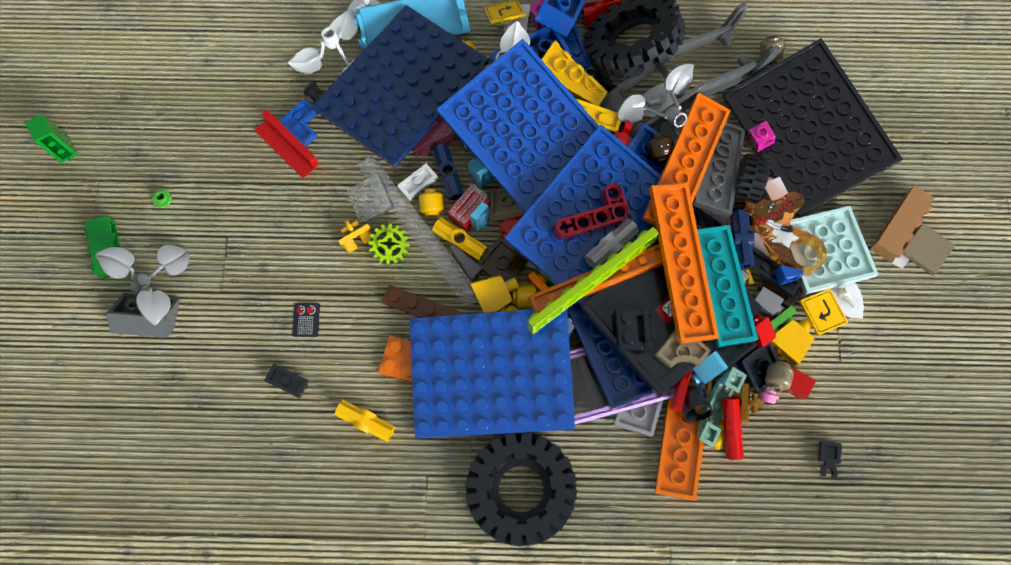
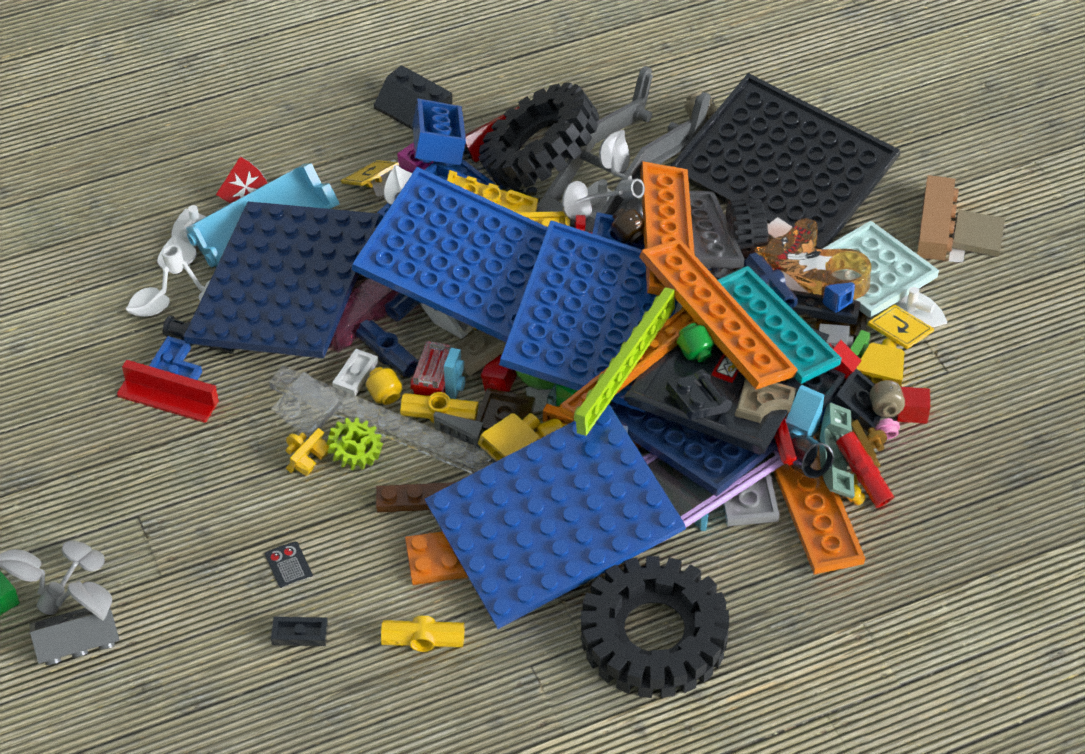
camera: 25 degrees left, 25 degrees down
(166, 199) = (31, 504): bright green plate -> none
(479, 173) = (429, 327): medium azure slope -> none
(589, 217) = (606, 298): dark red beam -> none
(611, 243) = (624, 324): light grey piece -> none
(654, 281) = (695, 342): none -> green head
(761, 136) = (735, 184): dark pink brick -> none
(829, 454) = (989, 459): black plate -> none

